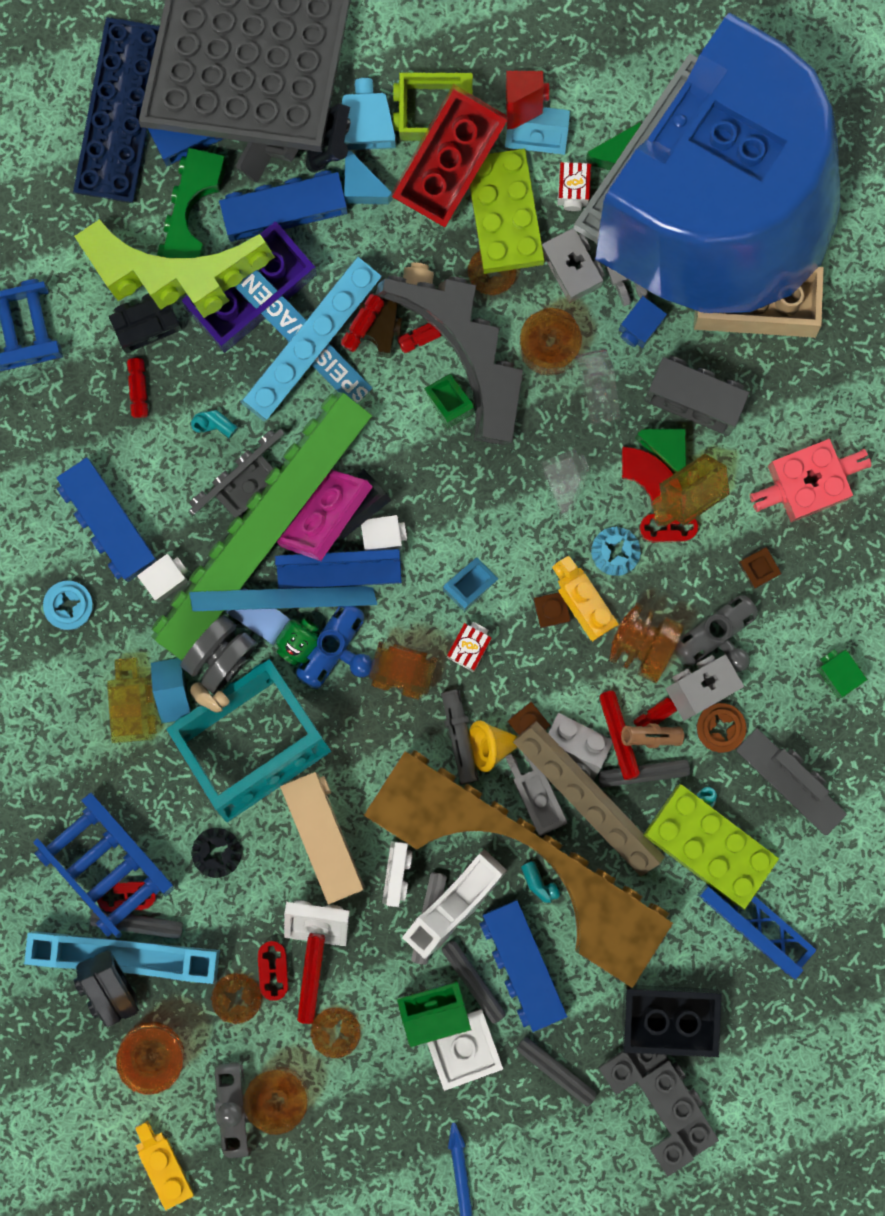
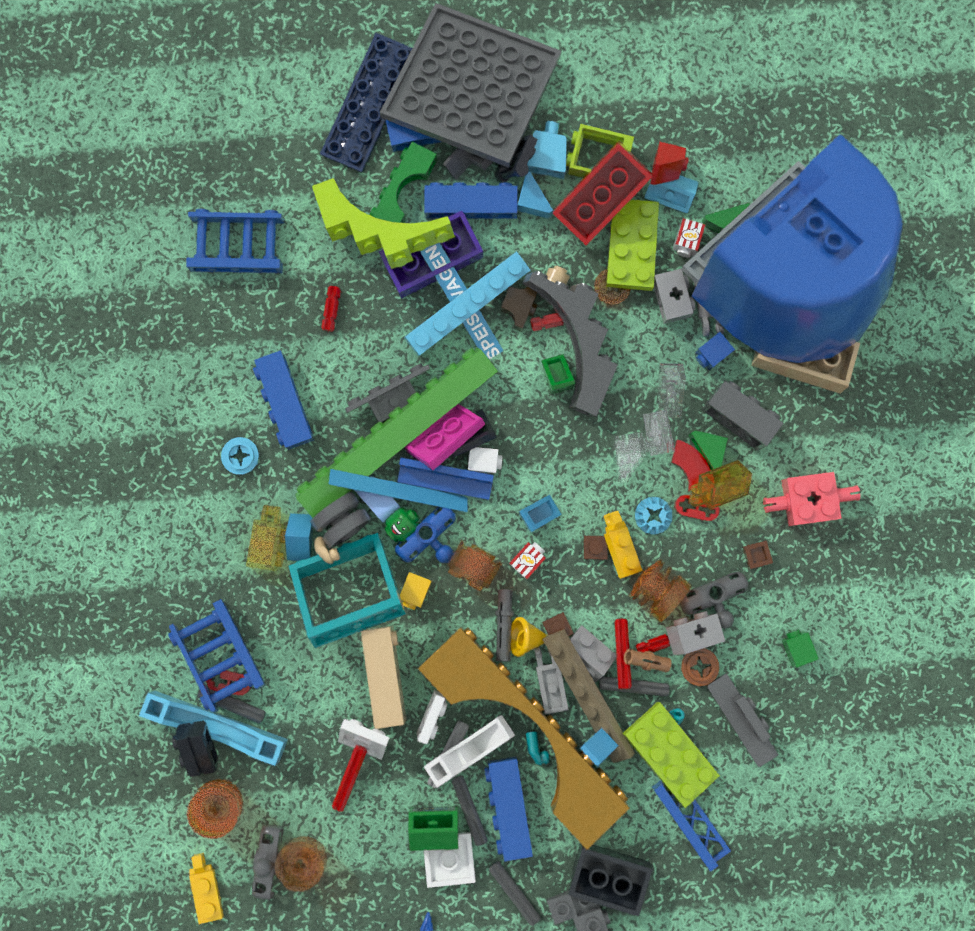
camera: 15 degrees right, 0 degrees up
(143, 323) = (346, 262): black brick -> none
(164, 577) = (315, 453): white brick -> none
(211, 421) = (379, 345): teal arm -> none
(230, 856) = (312, 672): black gear -> none
(231, 984) = (302, 778): clear orange gear -> none
(265, 971) = (317, 763): red beam -> none
(335, 721) = (414, 591): none -> yellow brick
(349, 1027) = (355, 811): clear orange gear -> none
(362, 322) = (507, 301): red axle -> none
(566, 346) = (654, 355): clear orange brick -> none
(596, 443) = (658, 432): none -> clear hips
(617, 858) = (599, 747): none -> dark azure slope

